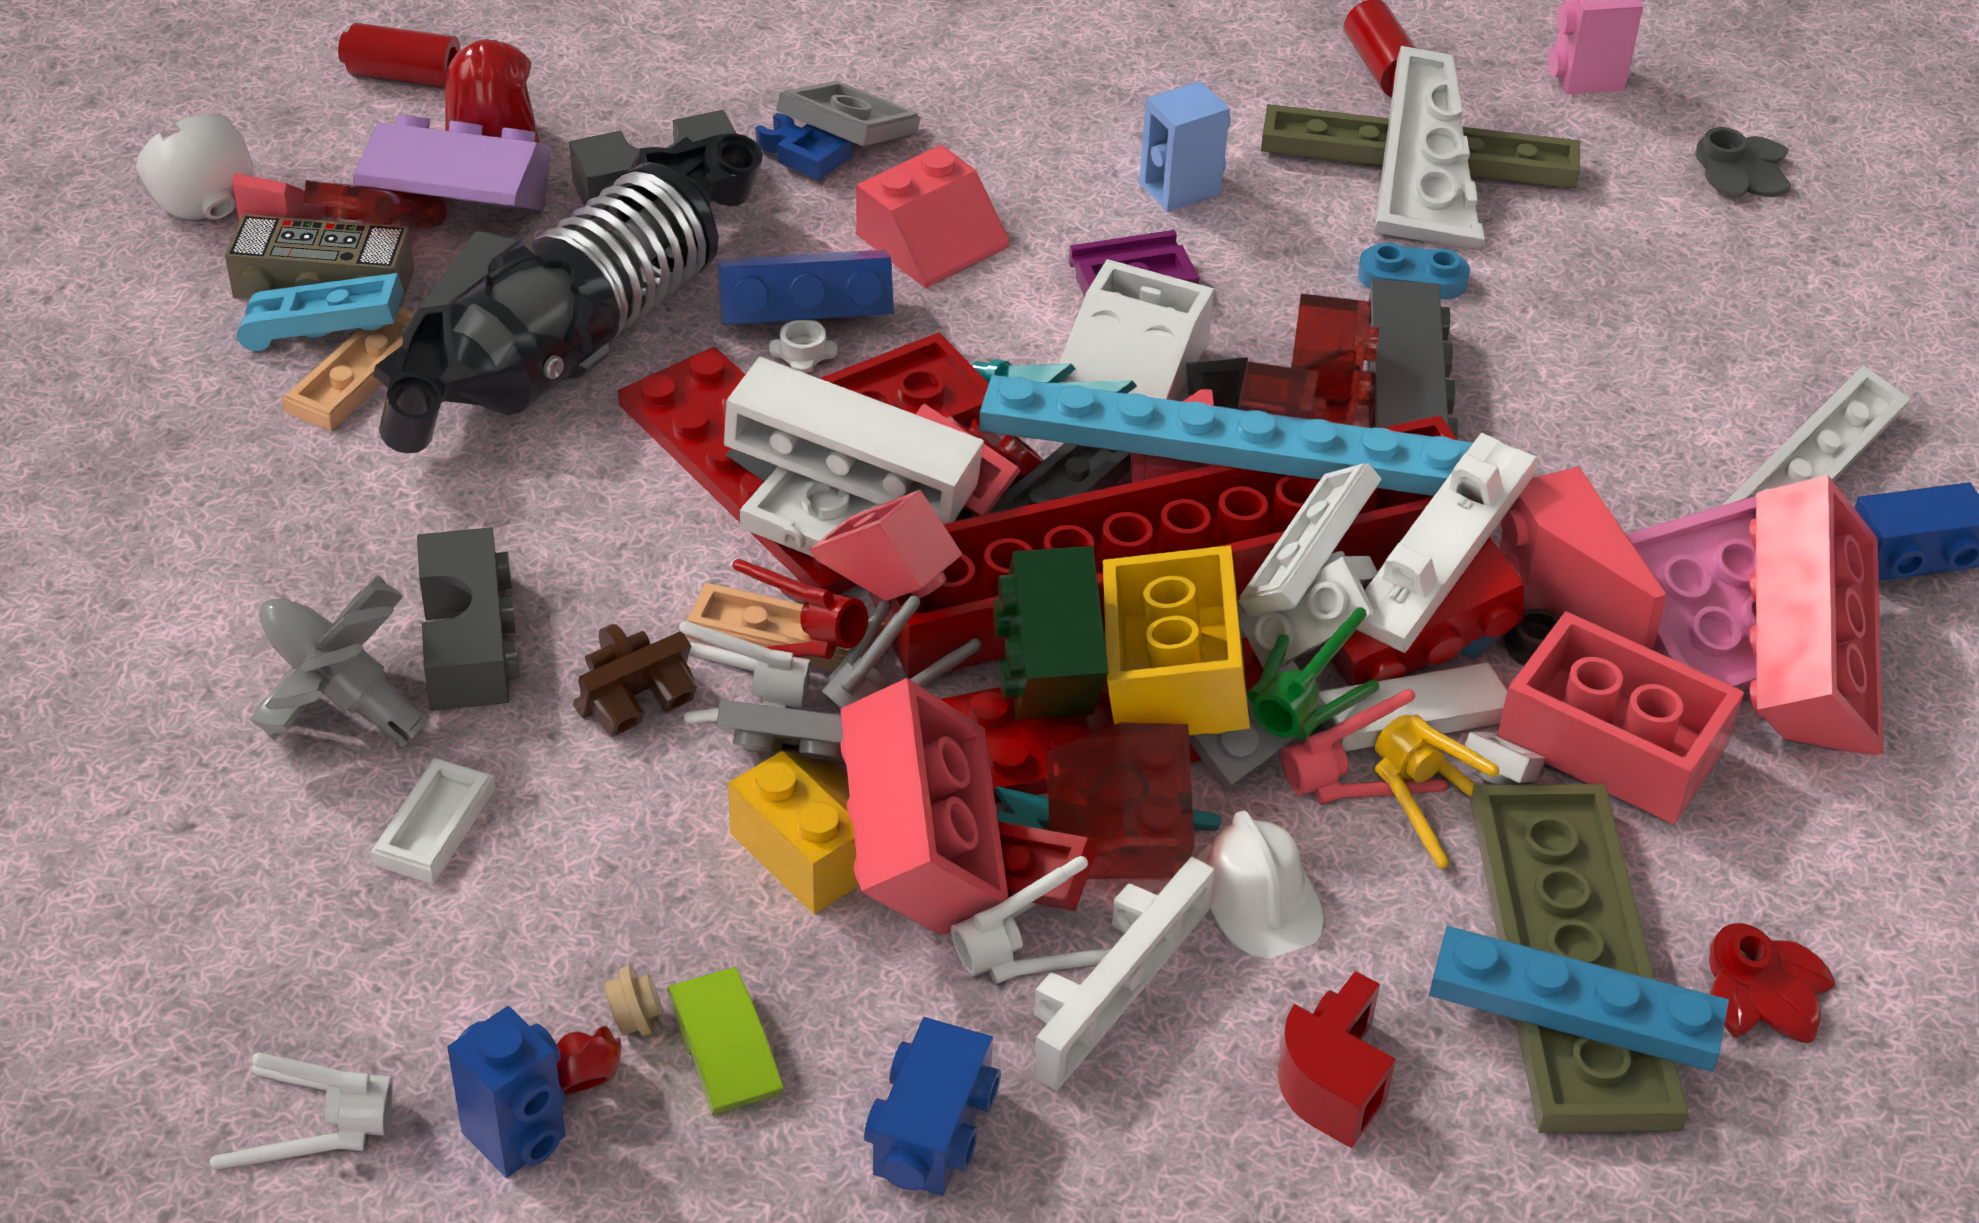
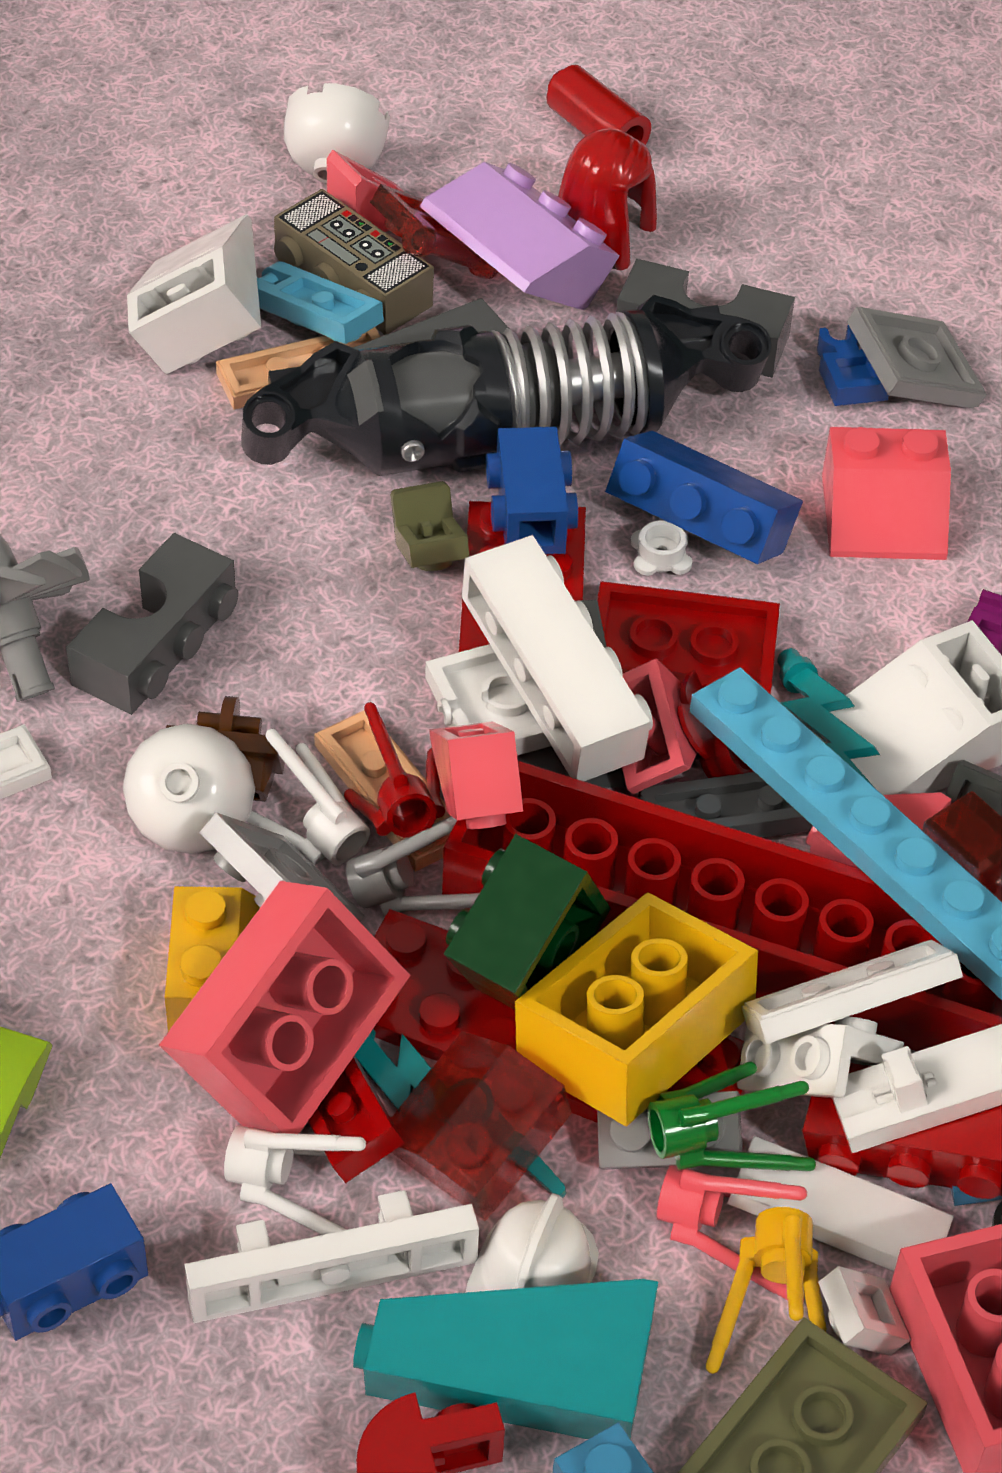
camera: 40 degrees right, 5 degrees up
(223, 347) = (197, 297): none -> white slope
(608, 431) = (426, 526): none -> olive bracket
(643, 714) = (180, 783): none -> white cylinder
(685, 343) = (532, 488): none -> blue brick
(1348, 913) = (545, 1354): none -> teal slope

